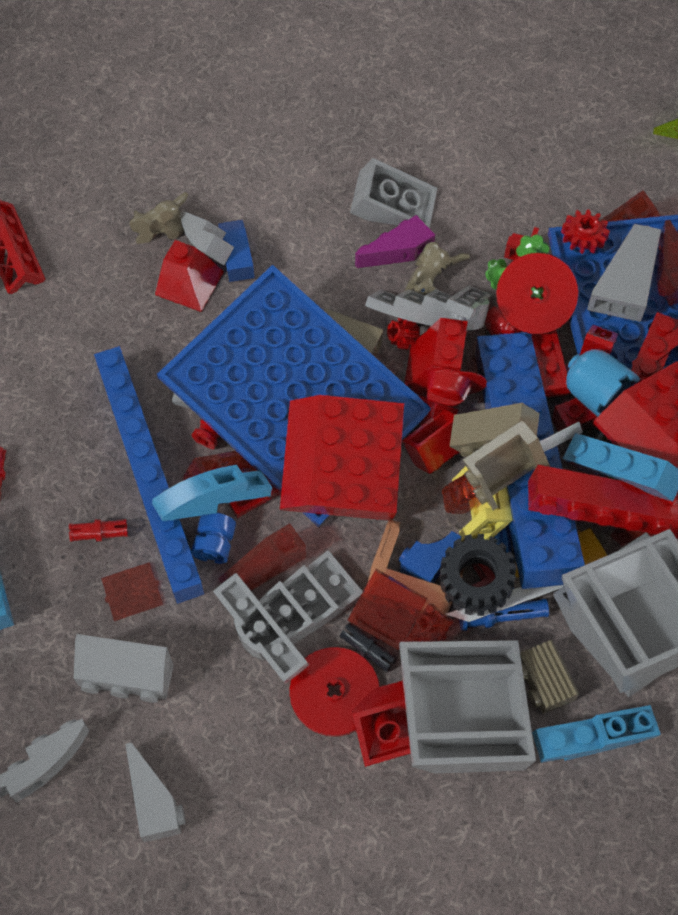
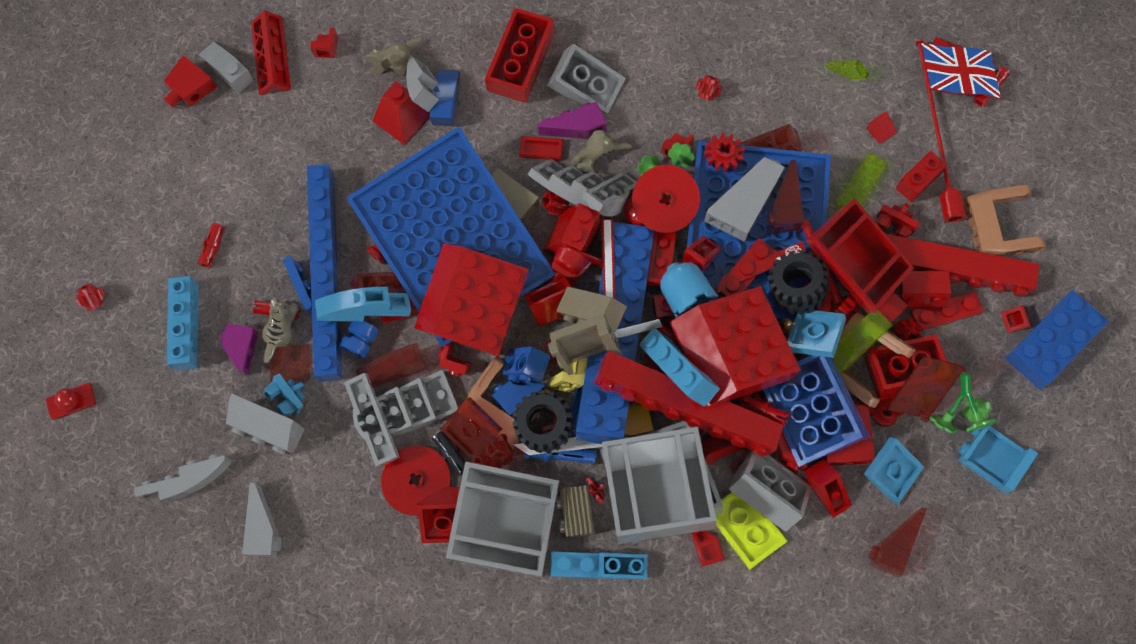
camera: 20 degrees right, 10 degrees up
(63, 581) = (239, 345): none -> magenta slope
(75, 224) = (325, 45): none -> red panel
(108, 551) = (278, 329): none -> dark tan animal
(123, 495) = (302, 287): none -> blue hinge
(140, 624) = (288, 392): none -> dark azure hips
(311, 186) = (520, 55): none -> red brick
(343, 543) = (455, 365): none -> red bracket
(365, 280) = (541, 148): none -> red tile
(430, 517) = (525, 365): none -> blue brick
(489, 369) = (608, 258): none -> sticker
(535, 177) = (708, 87): none -> red gear
(562, 644) = (596, 490): none -> red plant

